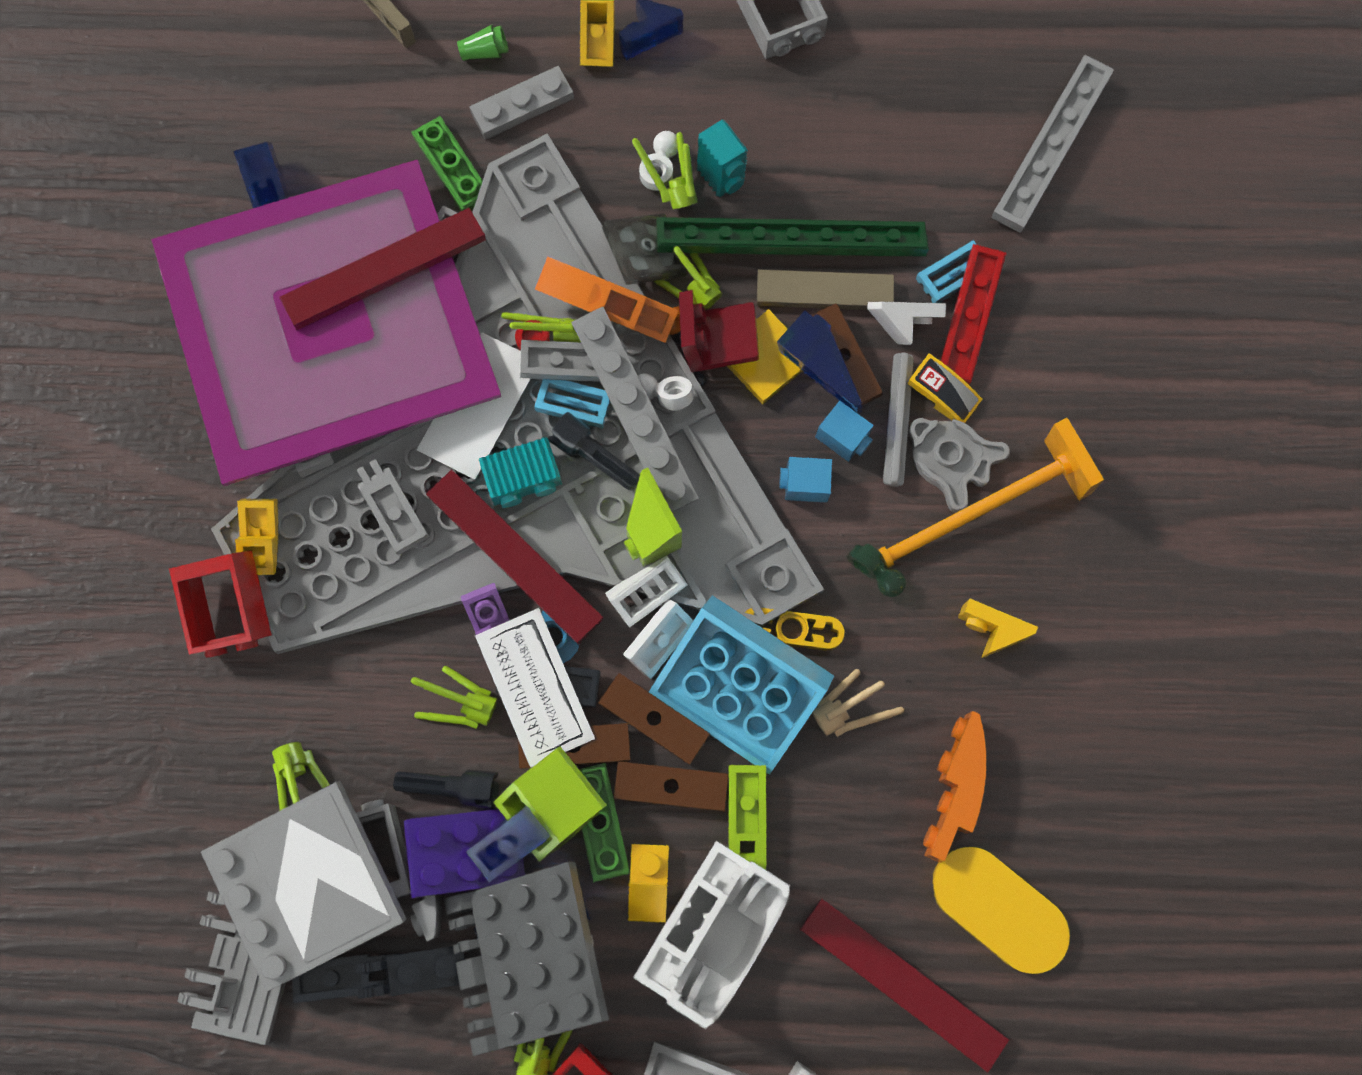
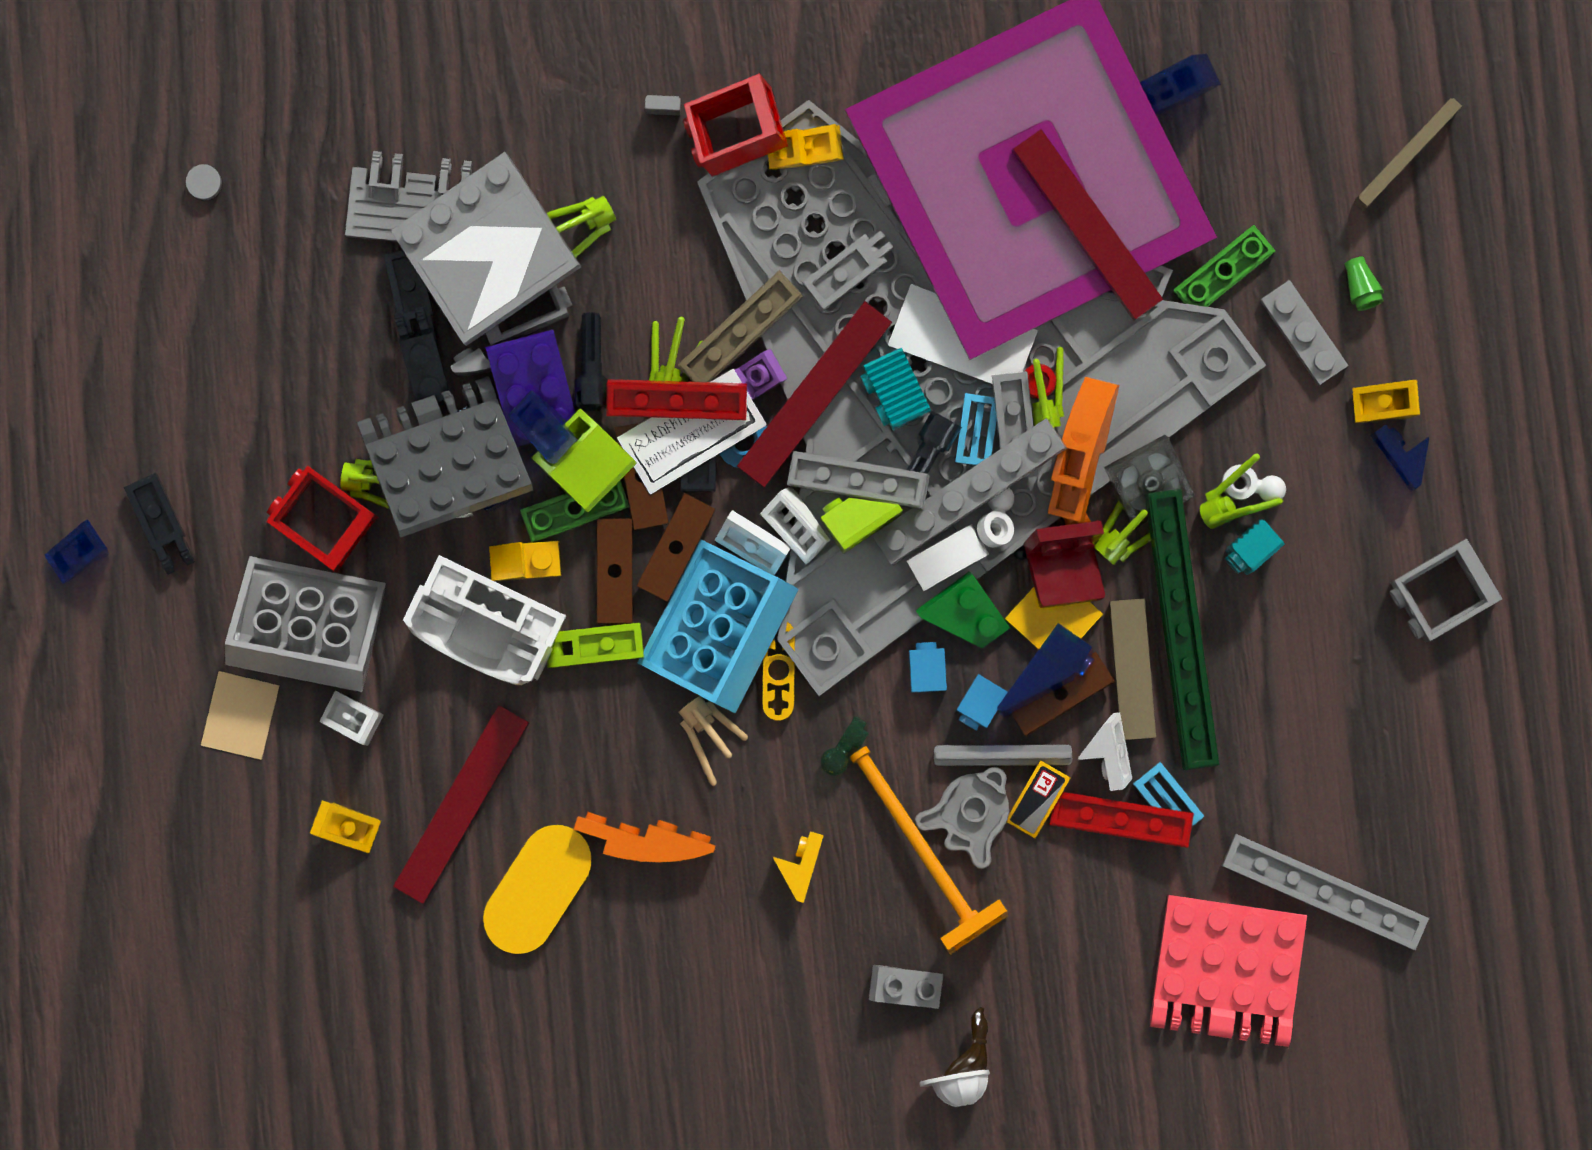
camera: 85 degrees right, 10 degrees up
(188, 678) = (663, 105): none -> light grey tile
(436, 624) = (741, 329): none -> dark tan tile
(499, 697) = (677, 399): none -> red tile
(608, 520) = (858, 480): none -> light grey tile
(698, 443) = (947, 557): none -> white slope
(753, 435) = (965, 612): none -> green wing
(1117, 238) = (1228, 962): none -> coral hinge
(1125, 540) = (905, 986): none -> light grey plate
(1217, 486) = (967, 1075): none -> piece

